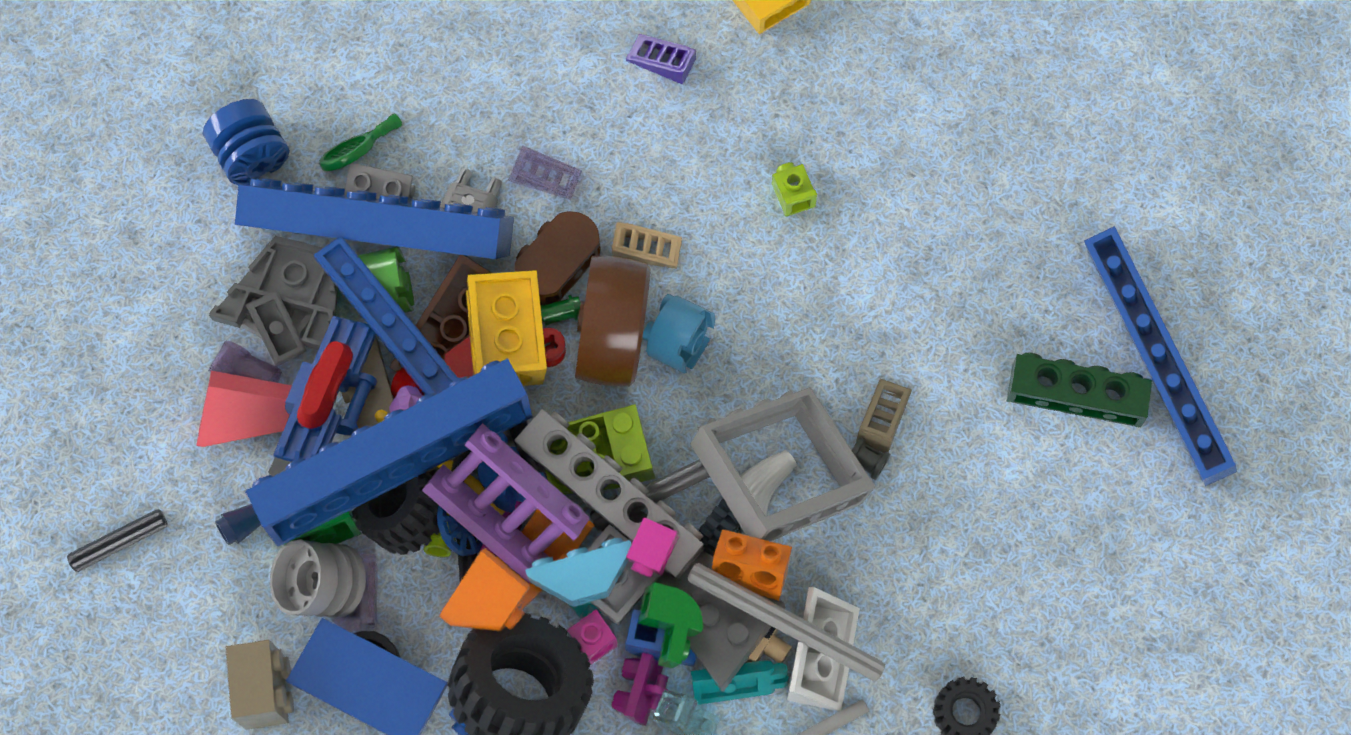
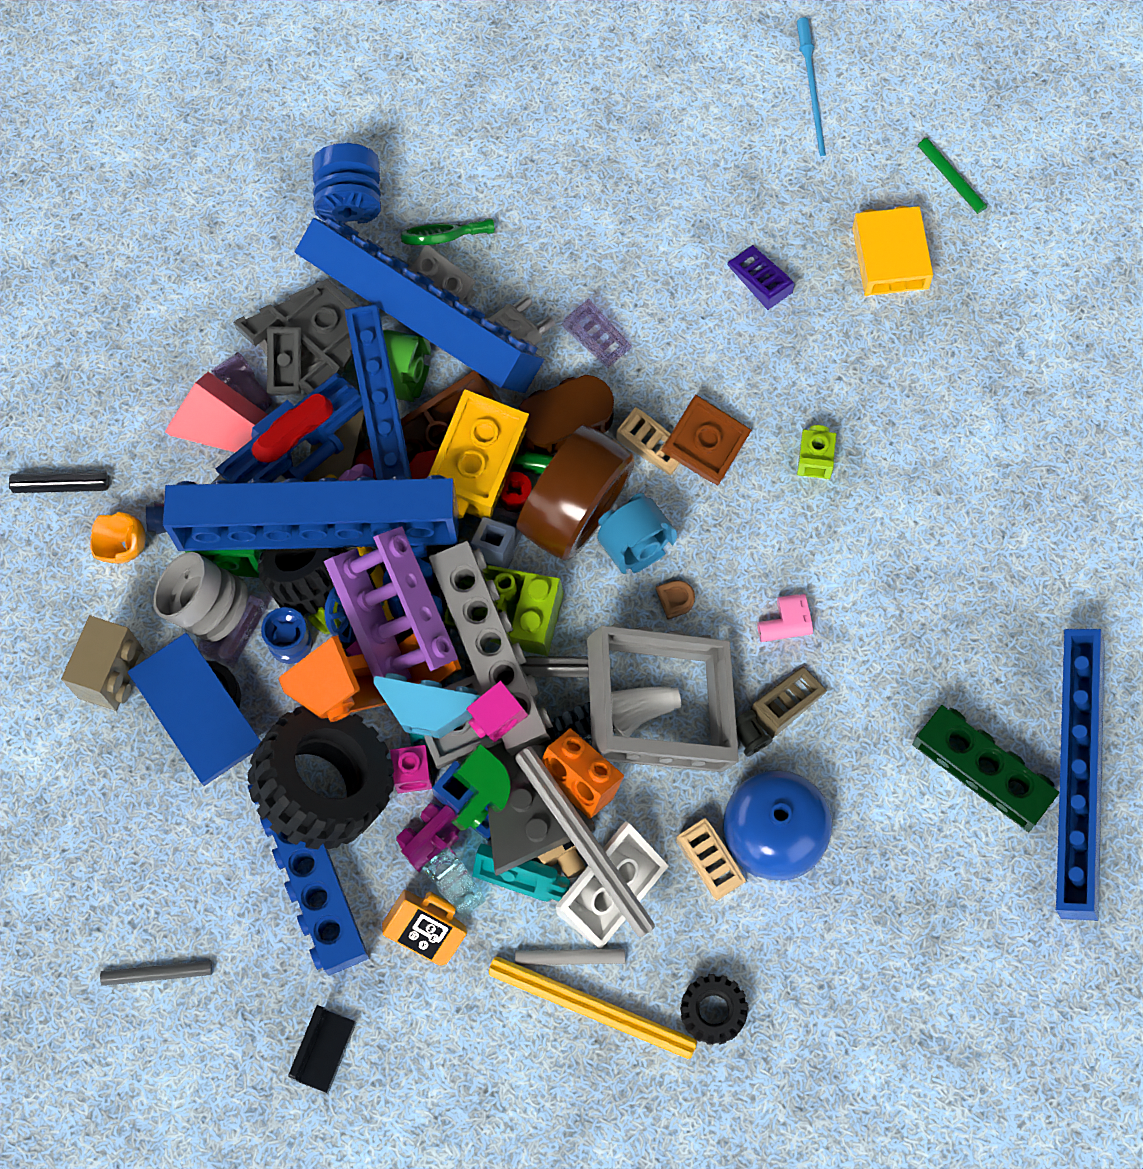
camera: 30 degrees right, 0 degrees up
(193, 563) = (111, 531): none -> light orange hair
(414, 575) = (286, 635): none -> blue wheel
(559, 392) = (497, 538): none -> sand blue brick
(692, 222) = (706, 440): none -> dark orange tile
(740, 373) = (676, 598): none -> medium nougat tile
(851, 344) = (793, 620): none -> bright pink piece
(875, 588) = (698, 829): none -> tan slope
(929, 545) = (772, 846): none -> blue cylinder

